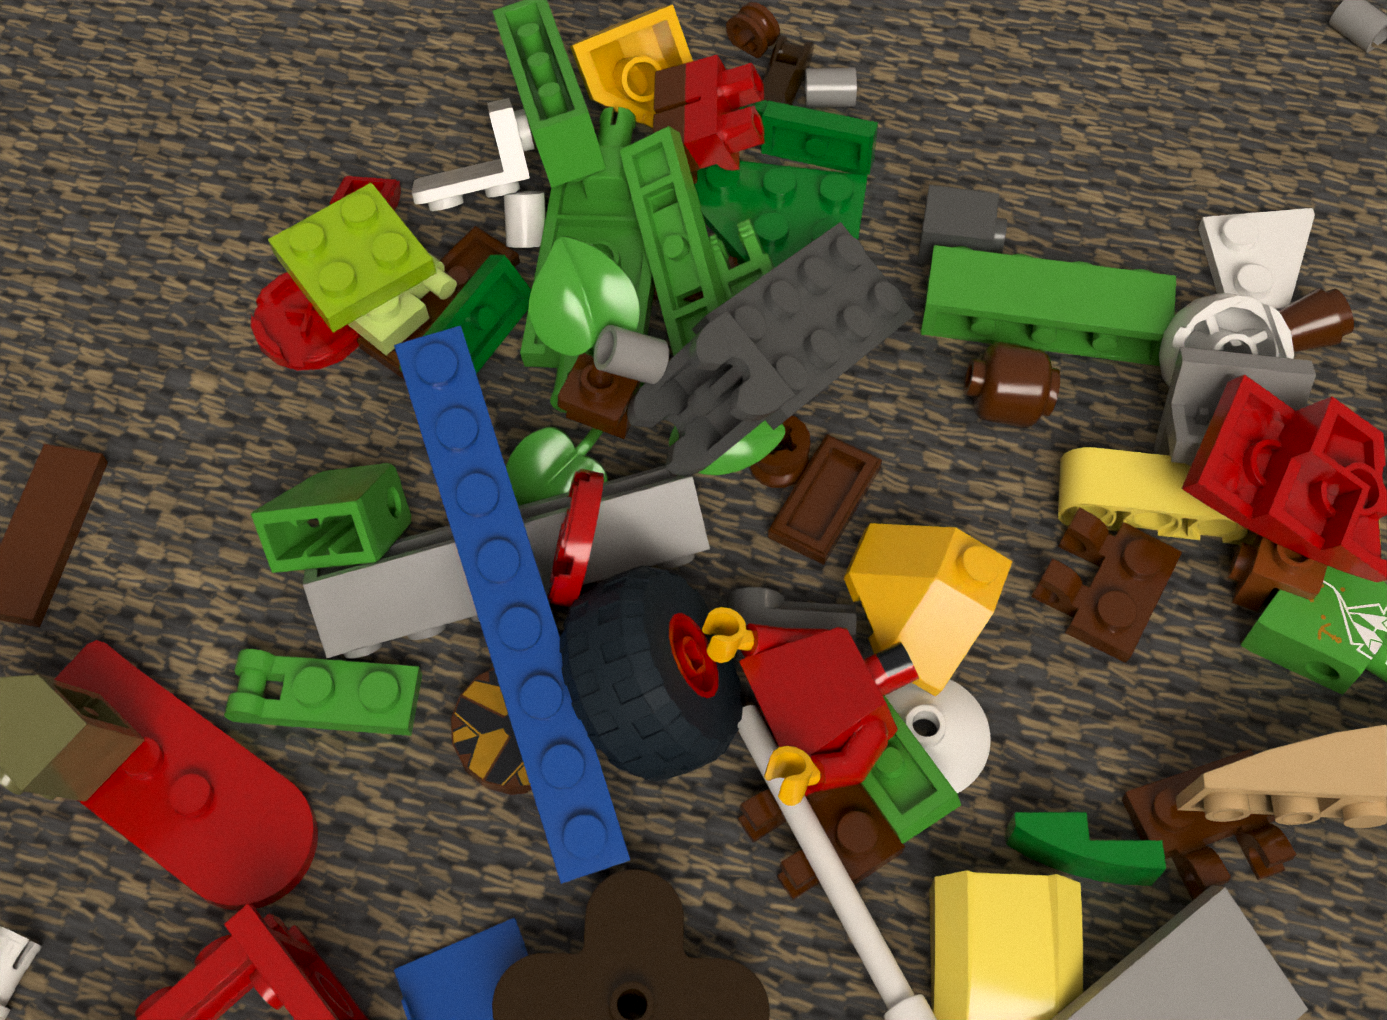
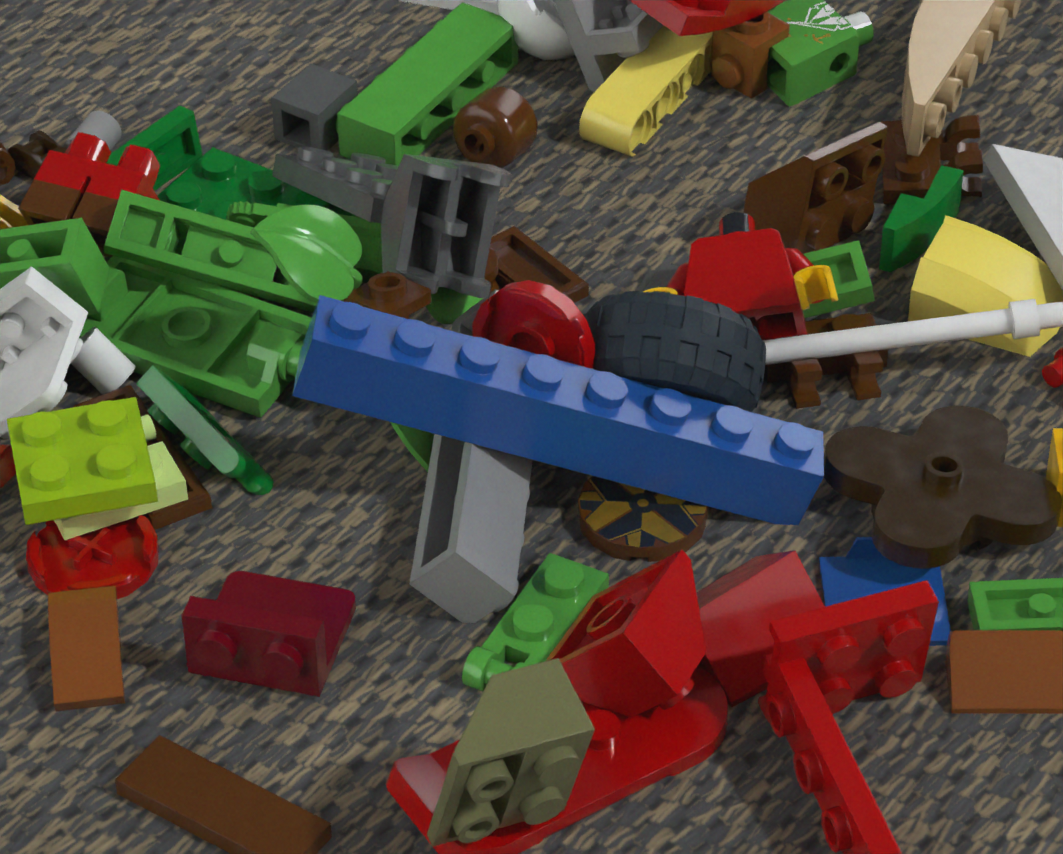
camera: 70 degrees left, 20 degrees down
(198, 351) = (85, 648): none -> dark orange slope
(229, 476) = (268, 632): none -> dark red bracket
(269, 780) = (637, 640): none -> red slope
(357, 513) = (382, 535): bright green torso -> none
(375, 877) = (738, 618): none -> red slope
(631, 354) = (365, 250): light grey hinge -> none
(928, 591) = (658, 213): yellow slope -> none
(1041, 725) = (822, 193): none -> reddish brown slope
(1123, 590) = (704, 144): reddish brown plate -> none

